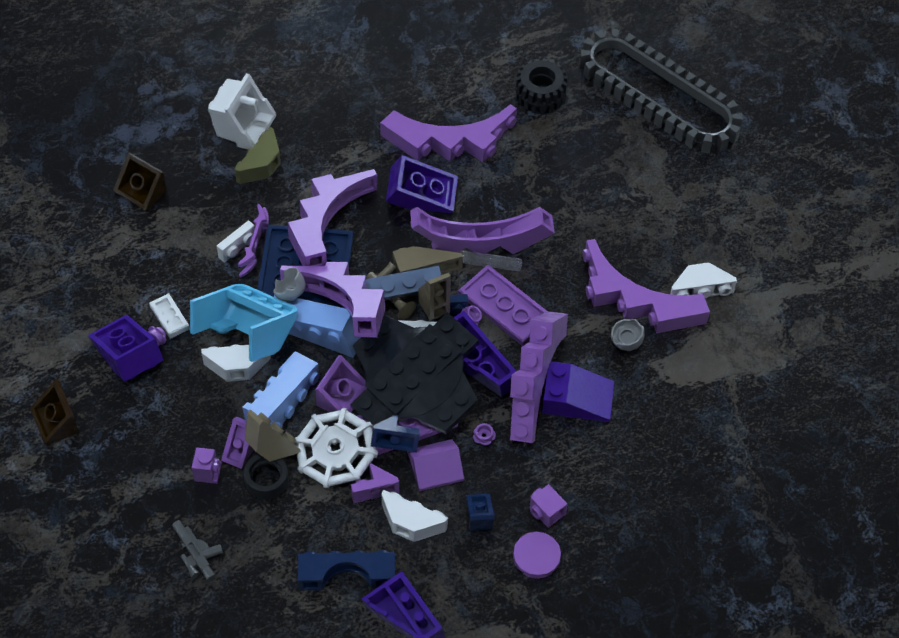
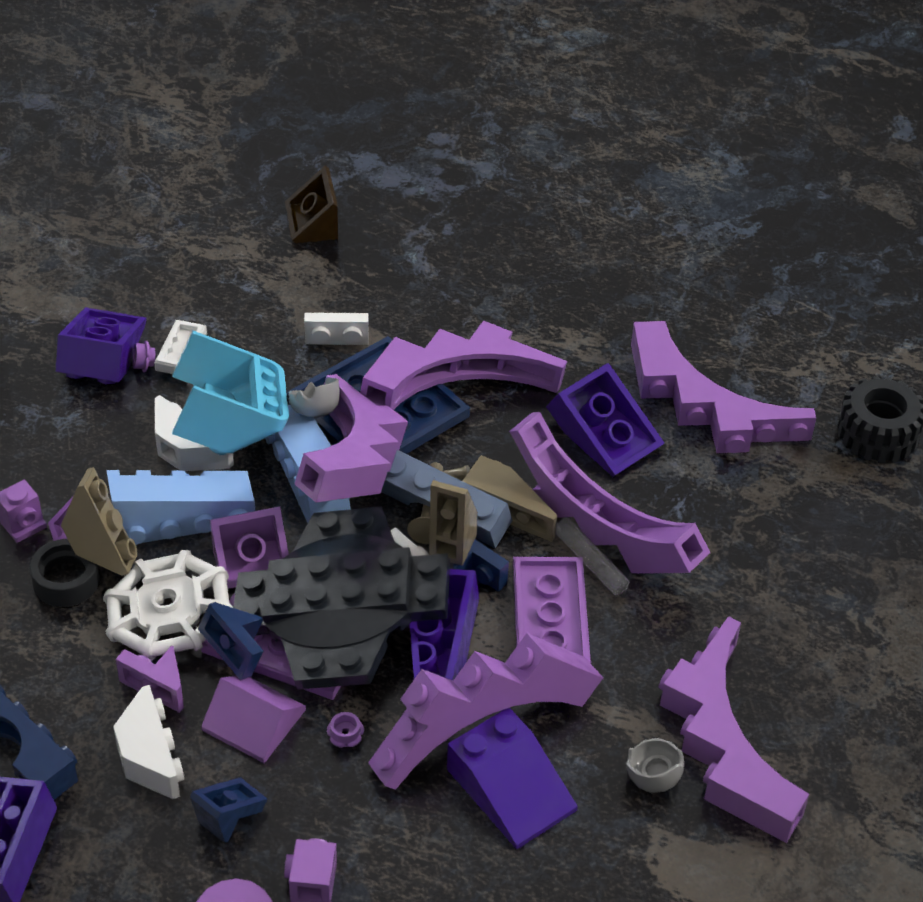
camera: 45 degrees right, 10 degrees down
(241, 112) = (494, 212): white piece -> none
(260, 160) = (464, 272): olive slope -> none
(261, 225) = (336, 349): medium lavender piece -> none
(474, 313) = (500, 591): medium lavender plate -> none
(704, 280) = (833, 784): white slope -> none

